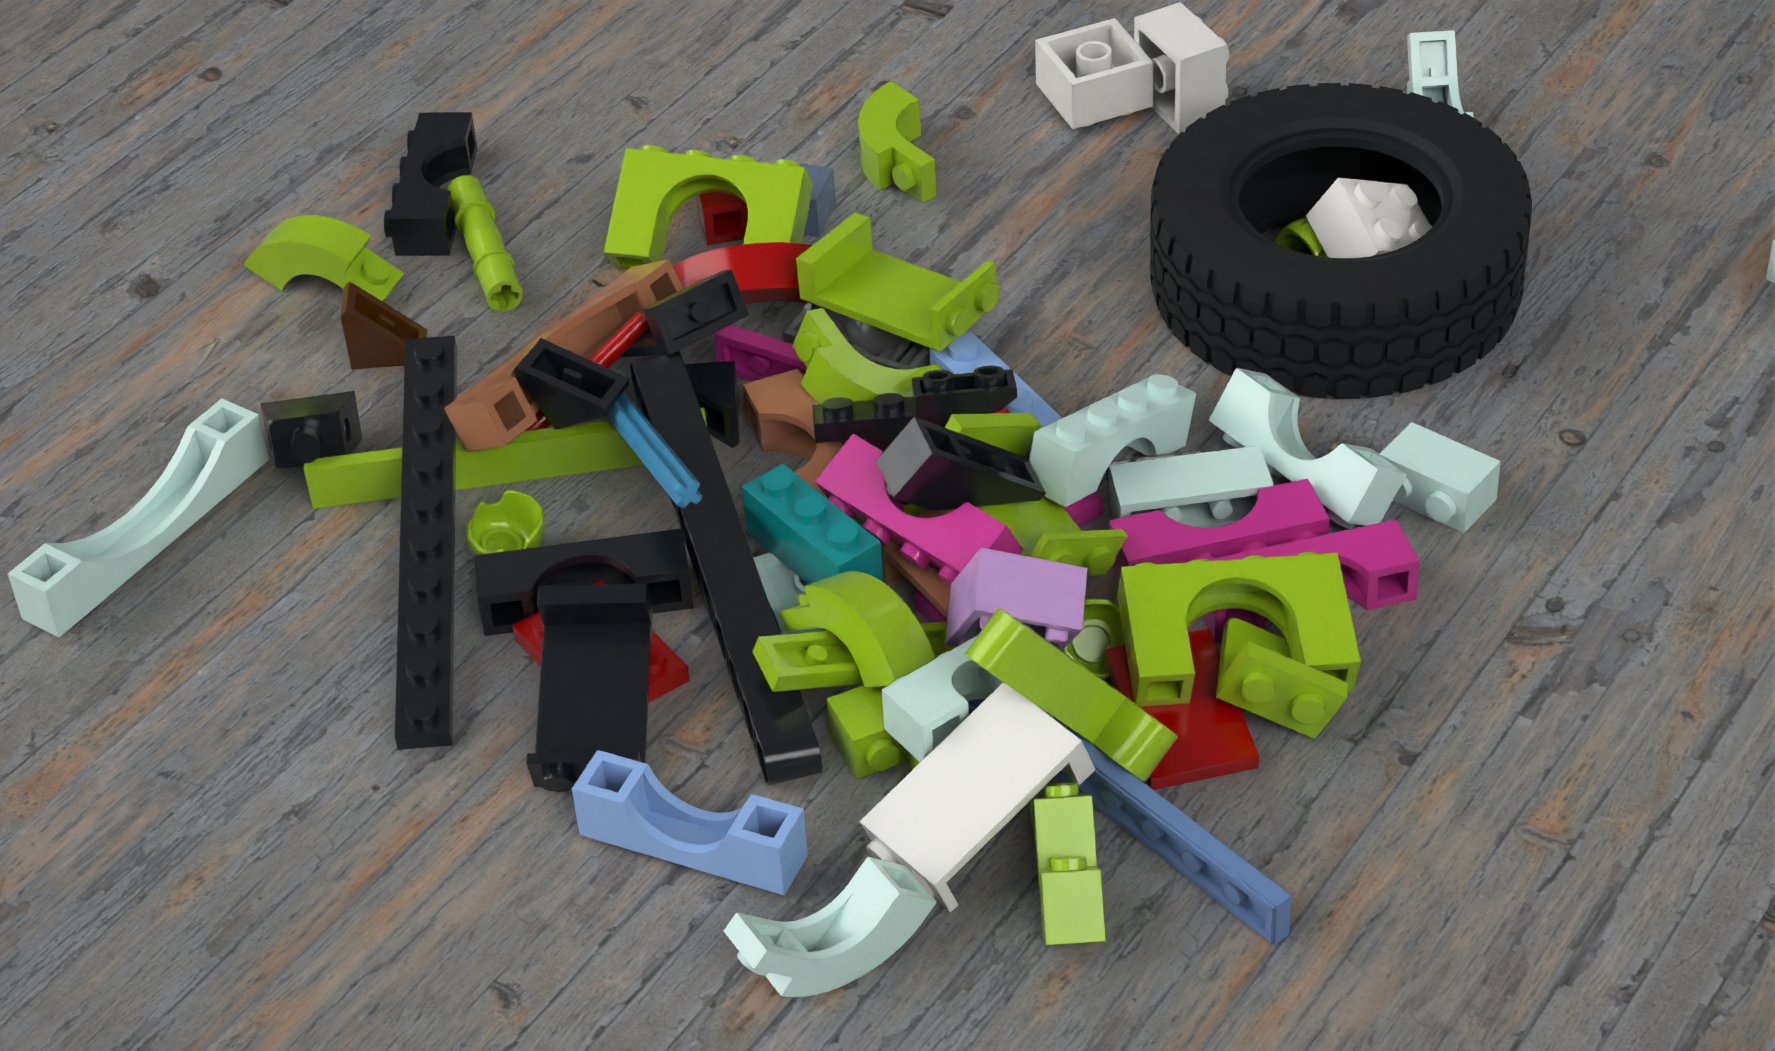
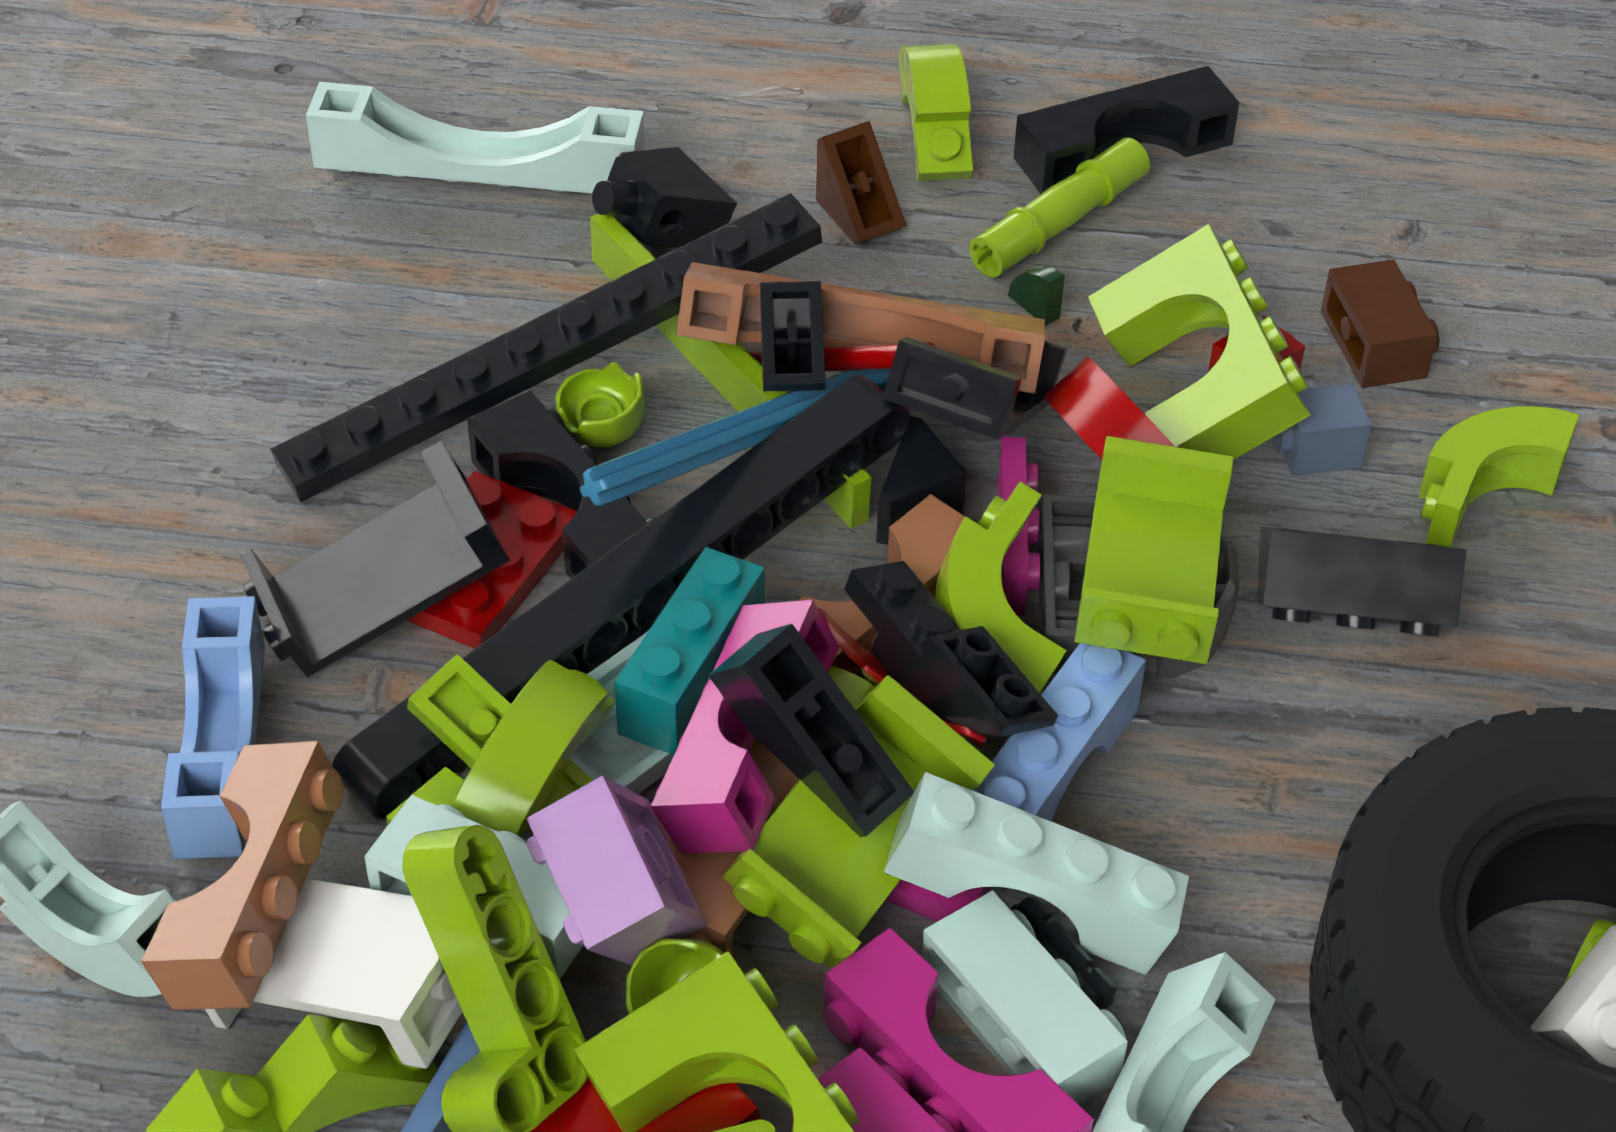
camera: 60 degrees right, 5 degrees up
(562, 282) = (1039, 292): none -> dark green tile
(728, 131) = (1379, 323): none -> reddish brown brick
(936, 835) = (224, 938): none -> nougat arch
(954, 222) = (1360, 580): none -> black slope

